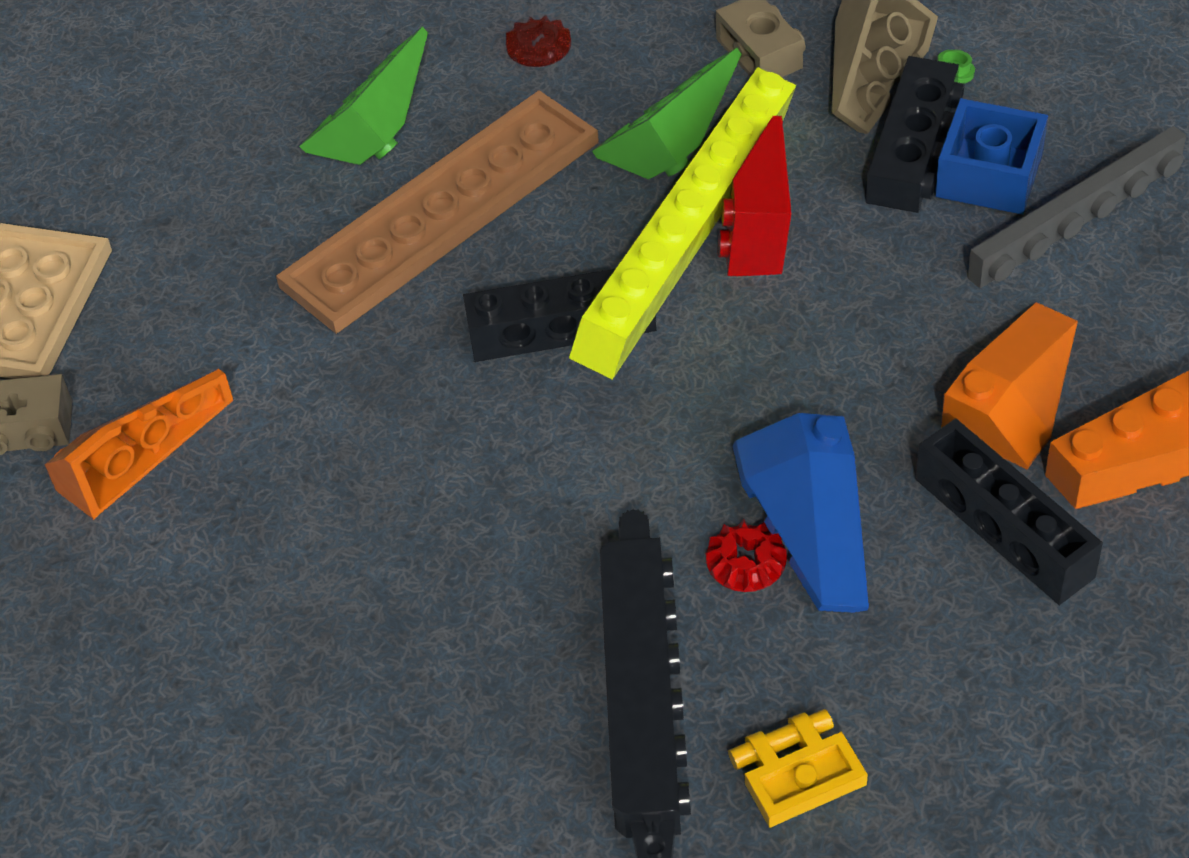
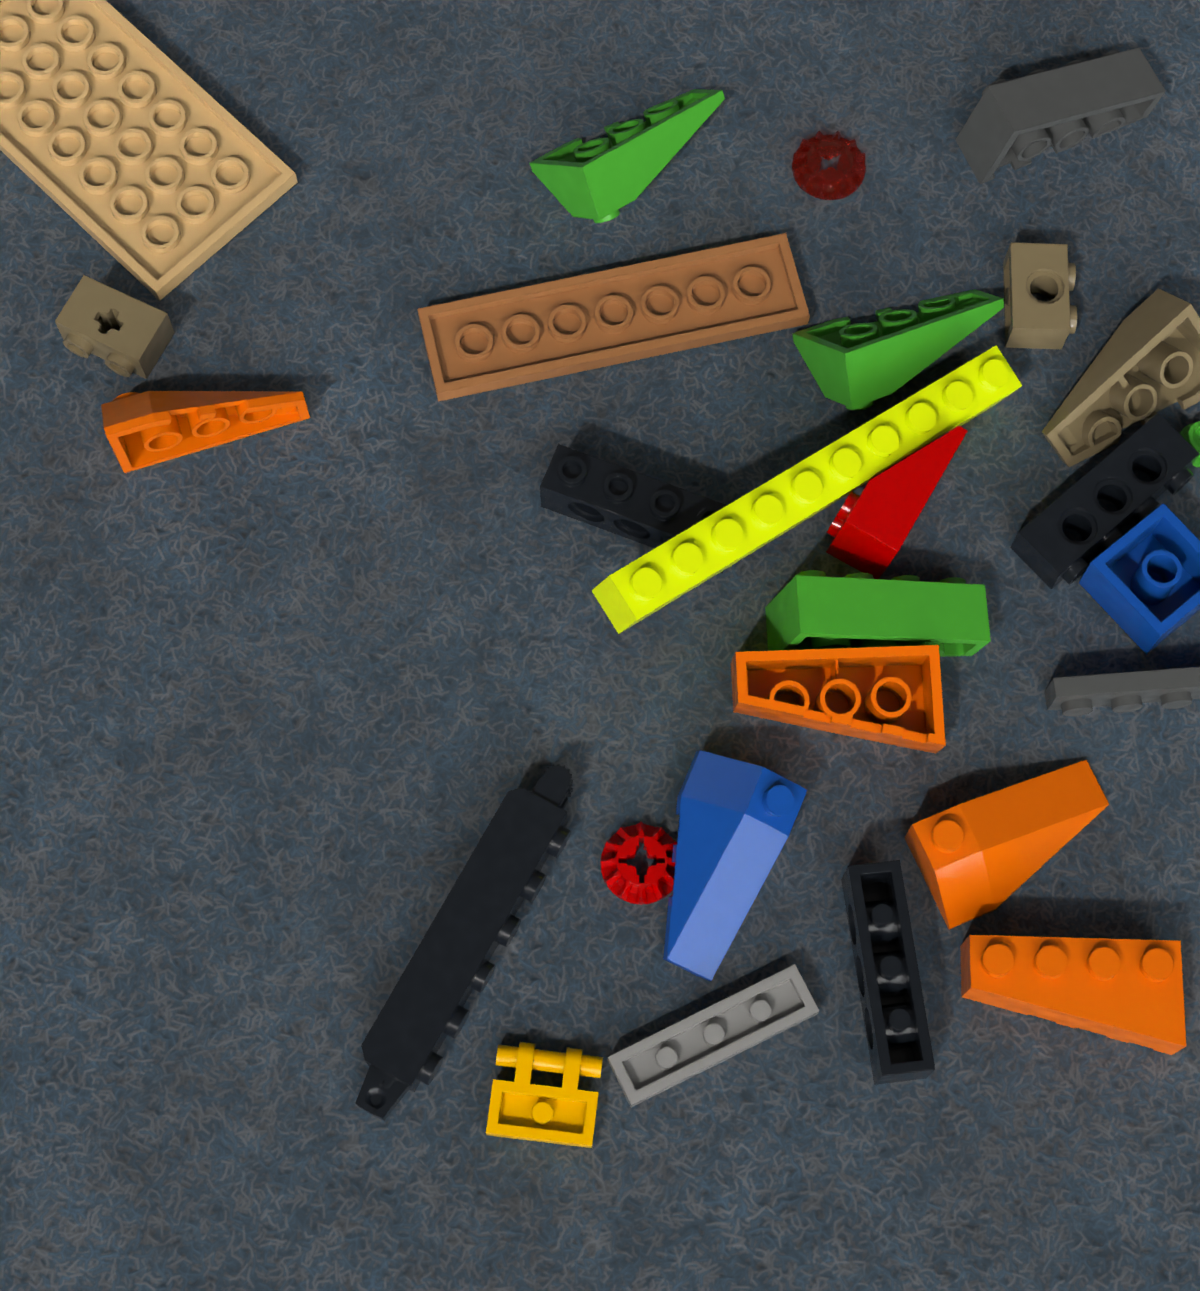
camera: 25 degrees right, 20 degrees up
(800, 286) = (878, 613): none -> bright green wedge
(819, 344) = (847, 692): none -> orange wedge
(901, 642) = (713, 1035): none -> light grey plate

